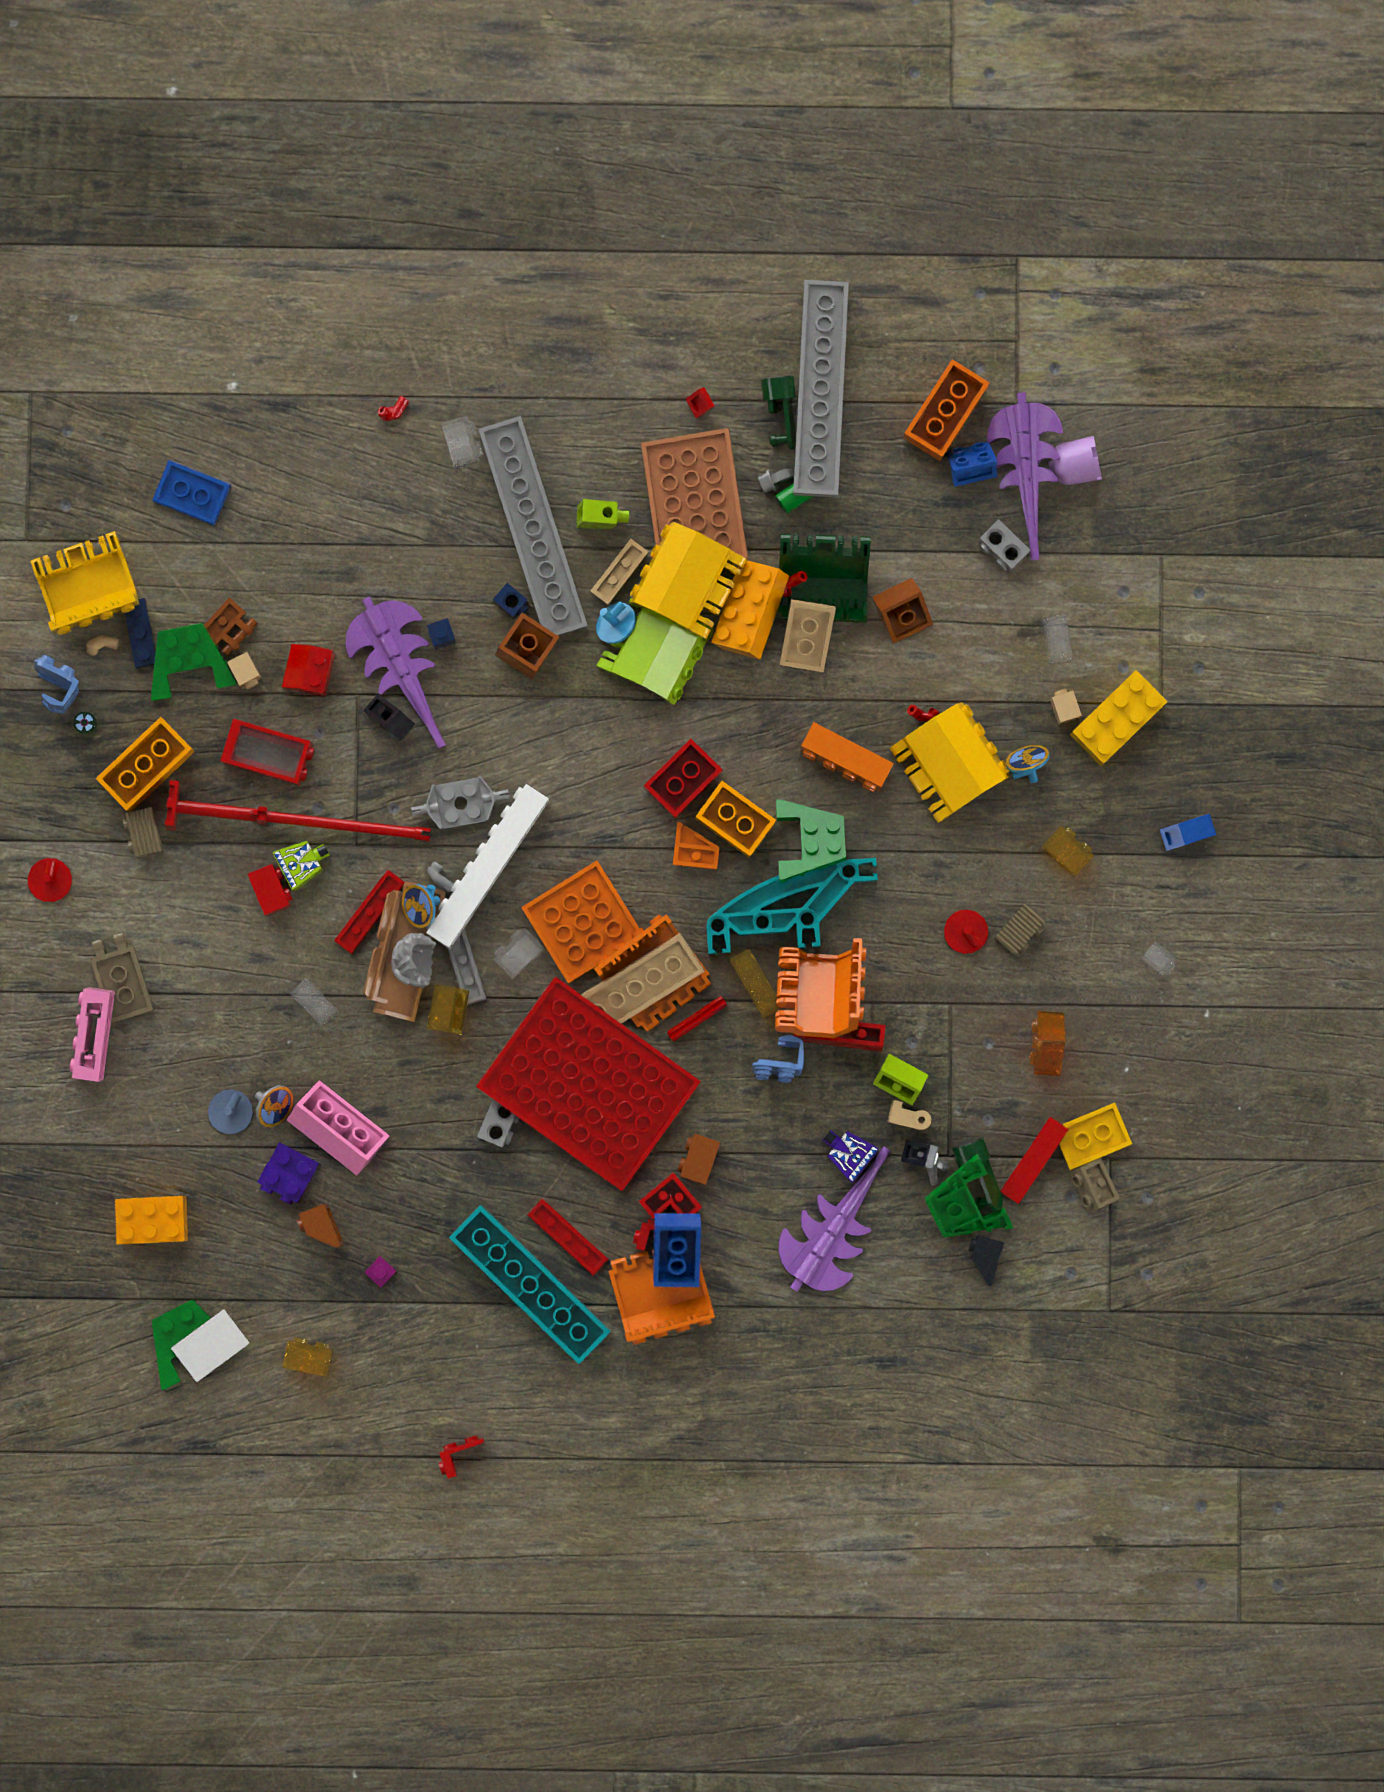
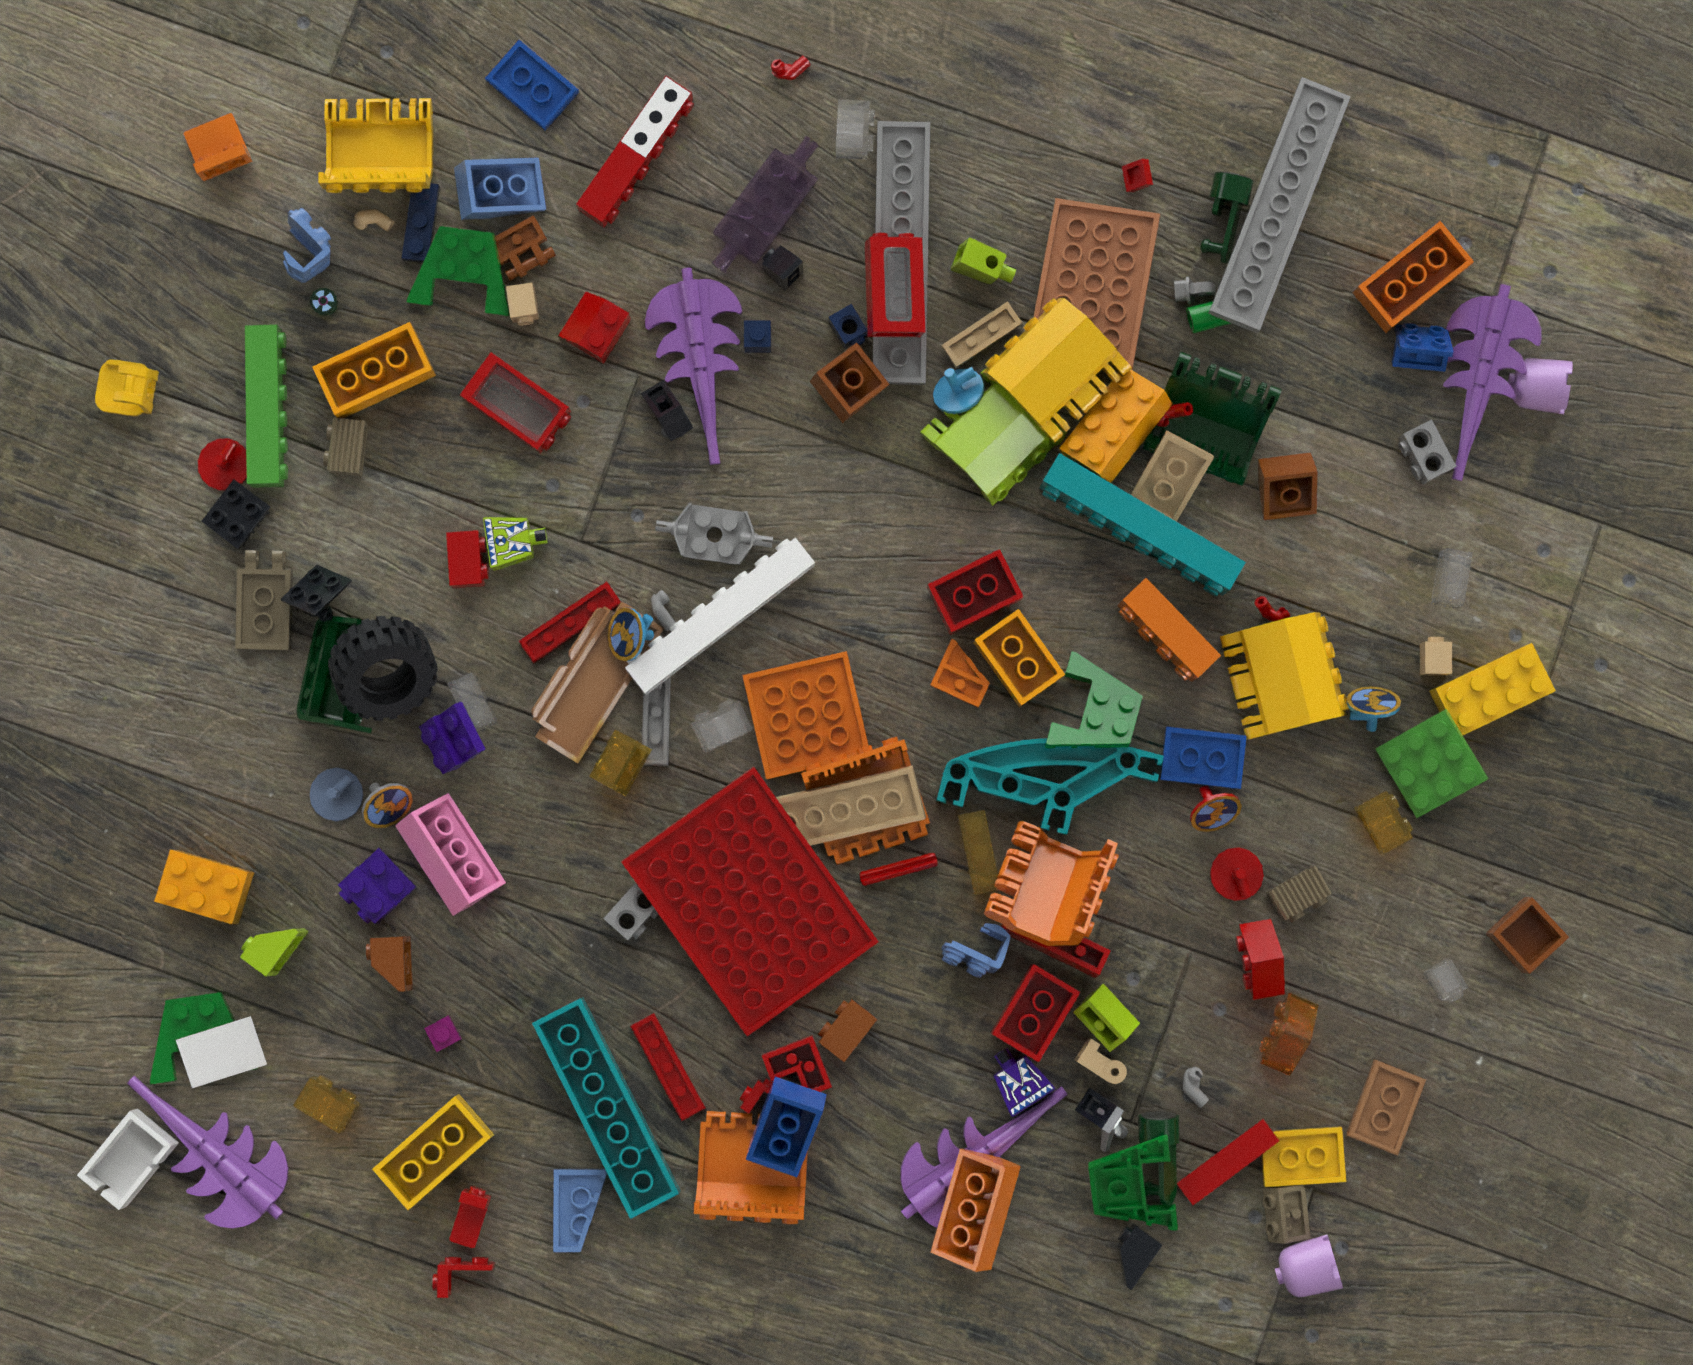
camera: 15 degrees right, 0 degrees up
(67, 823) = (265, 406): none -> bright green brick
(74, 916) = (236, 514): none -> black hinge
(81, 1042) = (221, 618): bright pink brick -> none
(160, 956) = (316, 591): none -> black hinge
(165, 1454) = (128, 1158): none -> white piece
(194, 584) = (499, 187): none -> medium blue slope
(195, 1013) = (318, 696): none -> dark green windscreen
(223, 1250) = (271, 950): none -> lime slope
(250, 1013) = (376, 642): none -> black tyre
(263, 816) = (486, 473): red piece -> none
(268, 1444) = (248, 1186): none -> medium lavender animal
(293, 518) = (635, 151): none -> red brick
(307, 1035) = (451, 738): none -> dark purple plate
(405, 1366) = (433, 1152): none -> yellow brick
(411, 526) = (765, 205): none -> clear purple plate
(412, 960) = (600, 693): light grey hair -> none
(442, 571) = (782, 266): none -> black slope
(452, 1407) = (470, 1216): none -> red bracket
(531, 1371) = (574, 1206): none -> medium blue wing
(537, 557) = (895, 285): none -> red piece
(796, 681) = (1141, 525): none -> teal brick
(843, 1094) = (1035, 1012): none -> red brick
(848, 1265) = (975, 1210): none -> orange slope
(908, 848) = (1203, 757): none -> blue plate
(931, 887) = (1215, 810): none -> shield
(986, 1111) = (1191, 1086): none -> light grey arm
(1006, 992) = (1261, 959): none -> red brick
(1089, 791) = (1431, 763): none -> bright green plate
(1125, 1221) = (1309, 1268): none -> lavender cylinder
(1145, 1075) = (1385, 1107): none -> medium nougat tile
(1188, 832) = (1527, 847): blue slope -> none
(1209, 901) = (1527, 935): none -> dark orange piece

